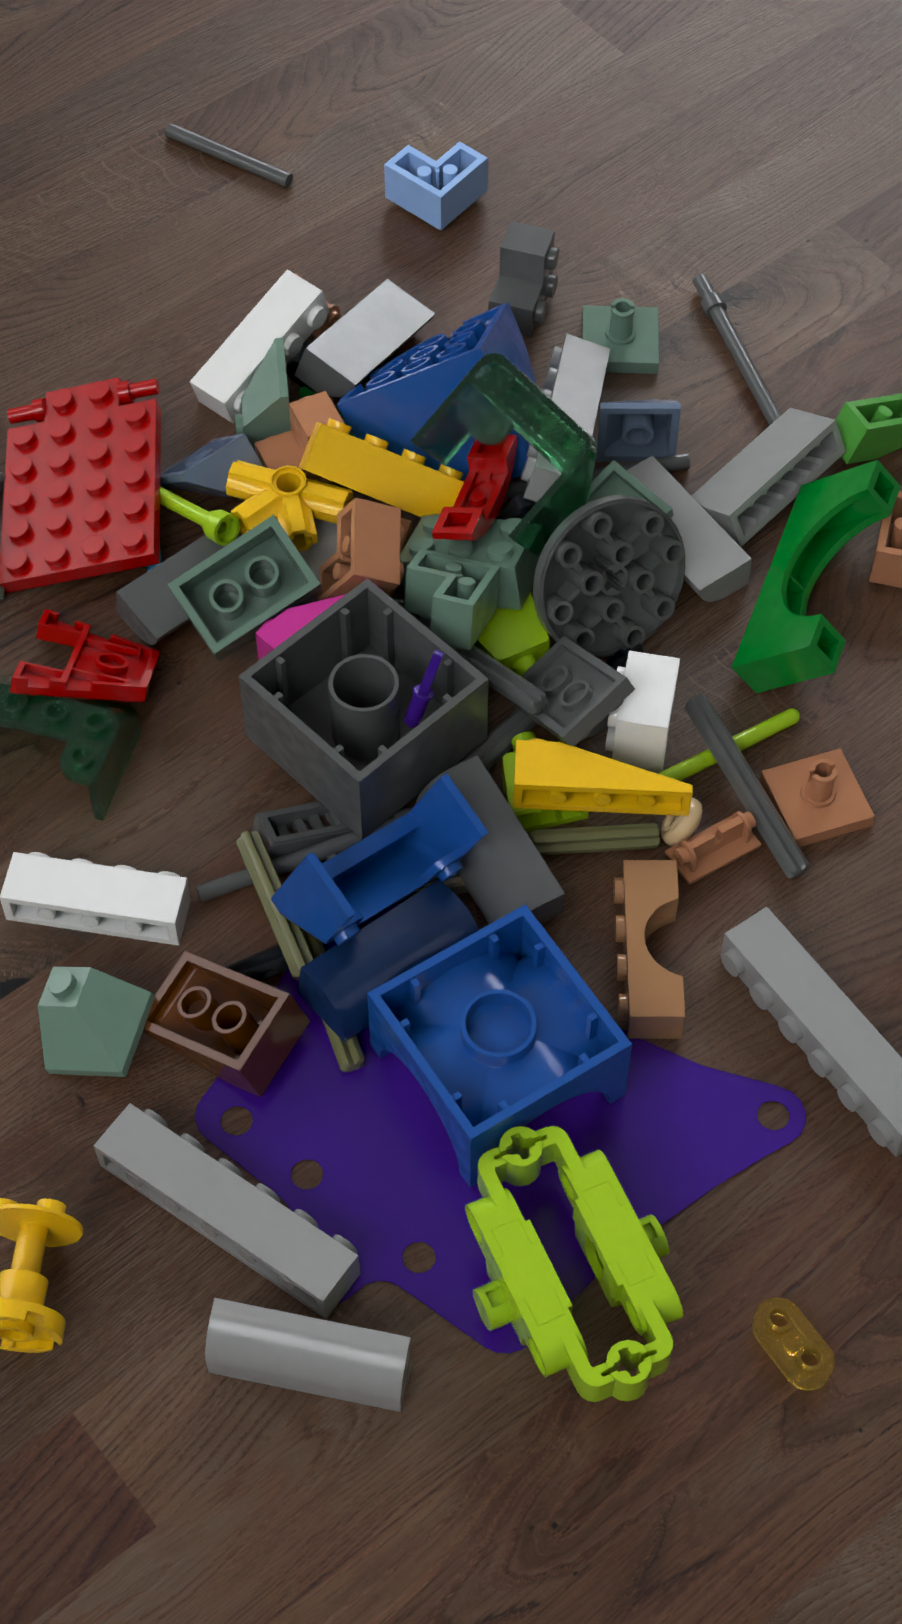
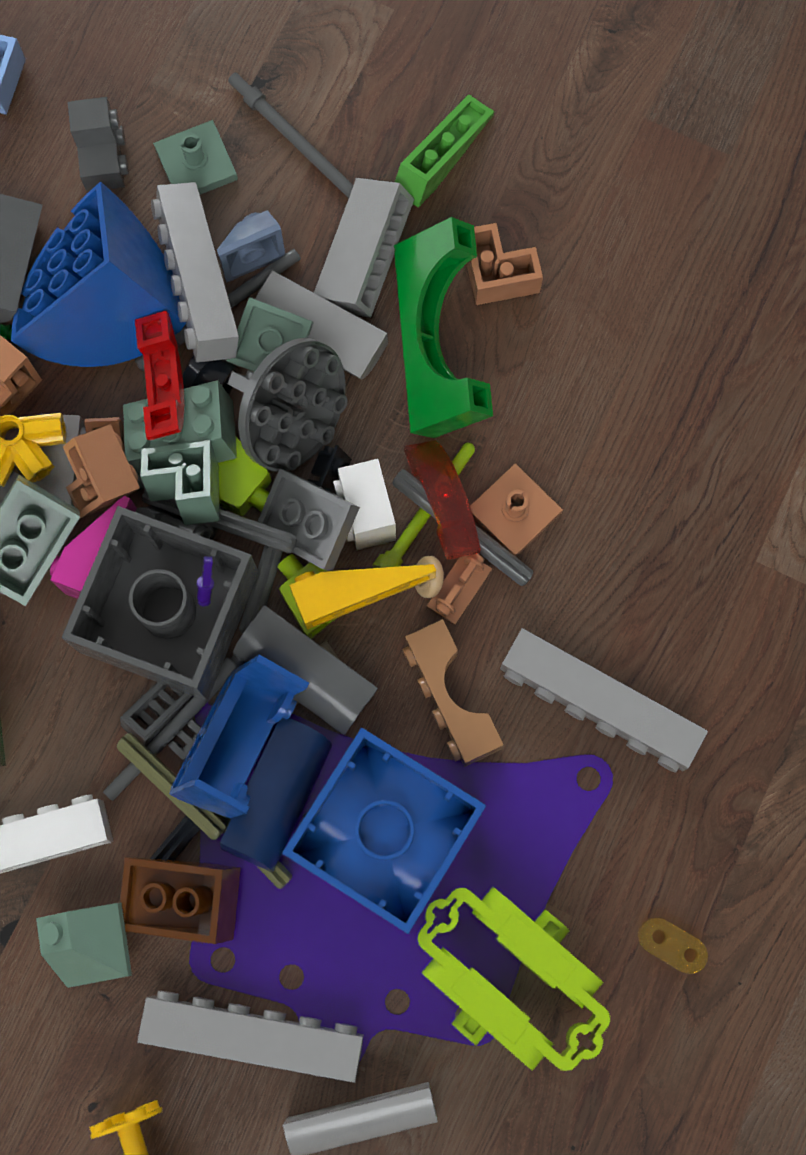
camera: 25 degrees left, 20 degrees up
(378, 472) = (75, 384): yellow brick -> none
(489, 406) = (145, 300): clear green windscreen -> none
(596, 839) = (372, 619): olive axle -> none
(740, 746) = (447, 498): none -> clear red slope

